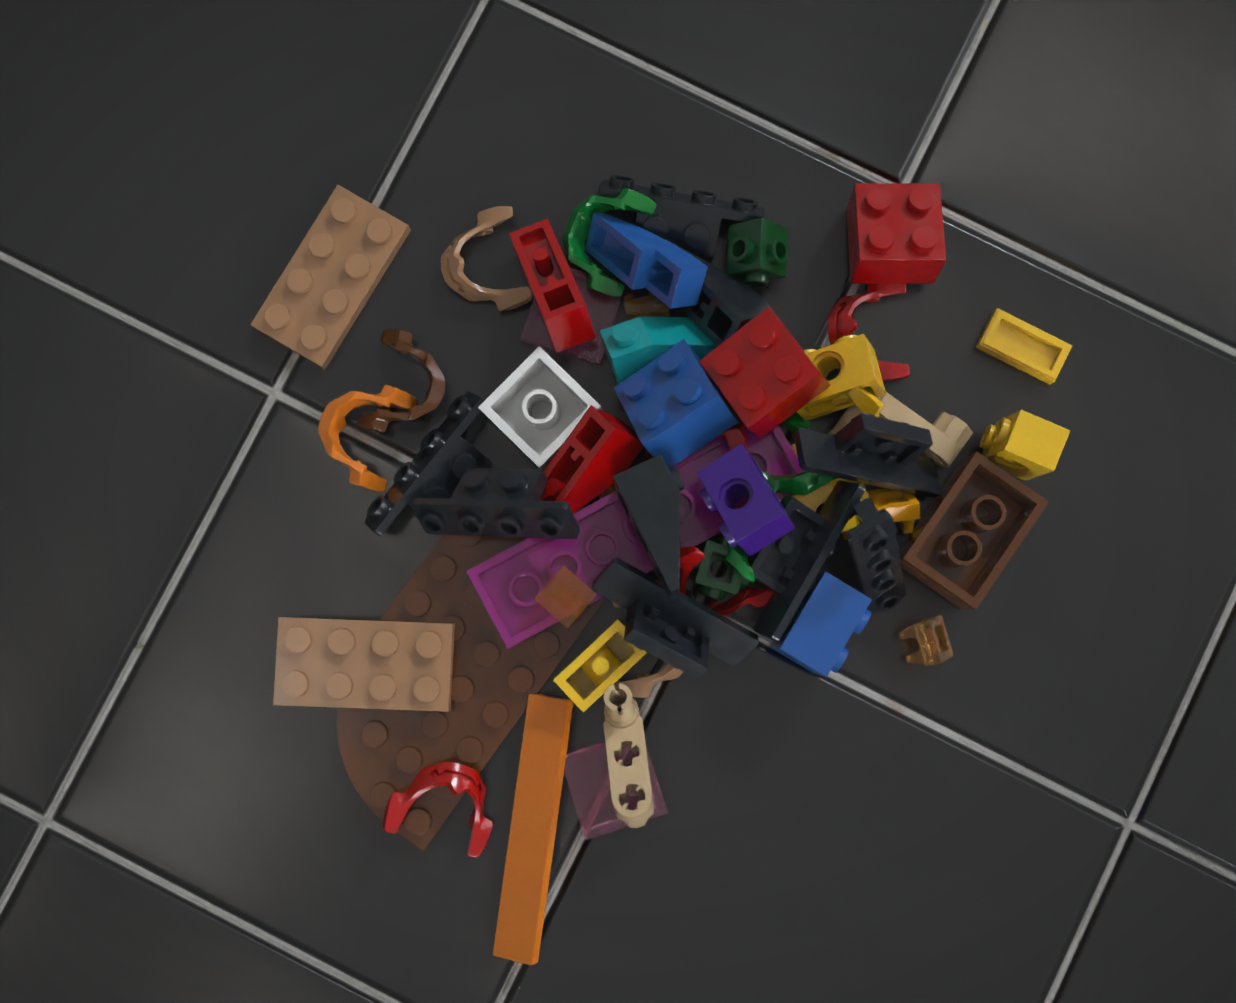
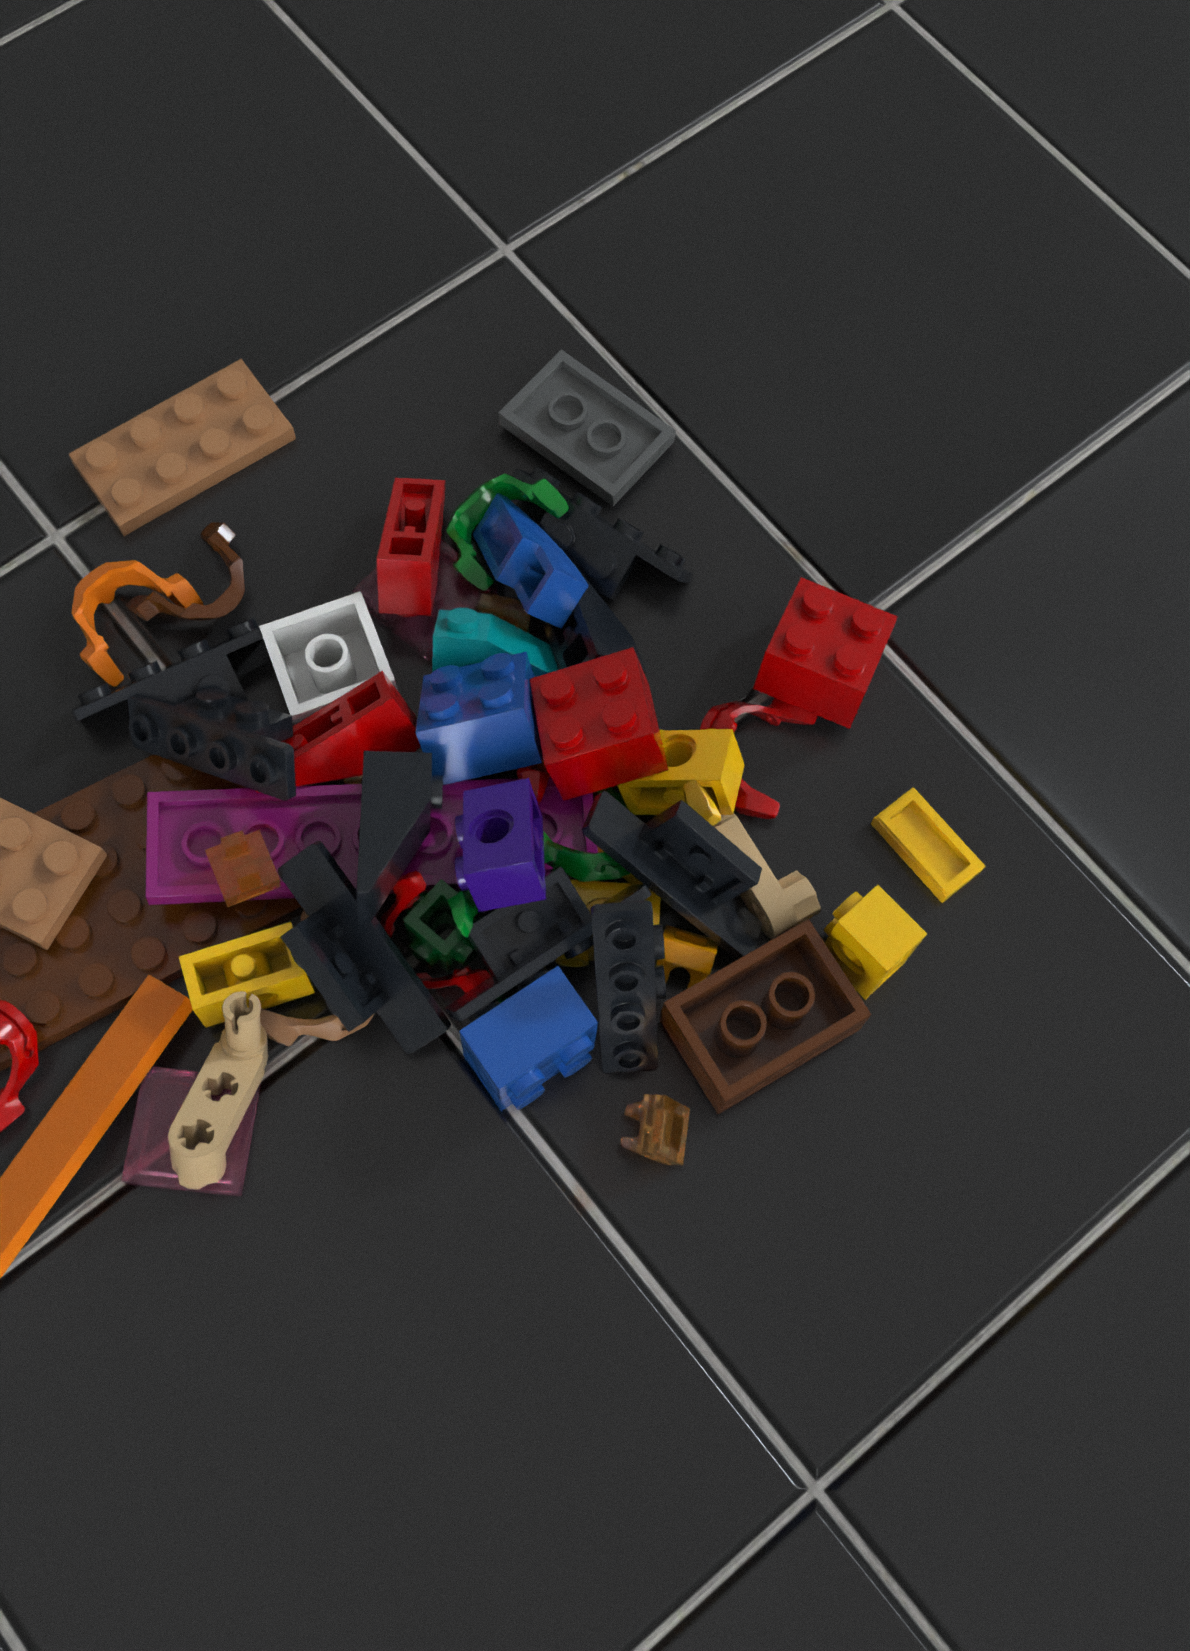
camera: 20 degrees right, 15 degrees down
(453, 264) = (357, 544): medium nougat helmet -> none
(630, 122) = (586, 427): none -> dark grey plate
(757, 251) = (660, 607): dark green brick -> none

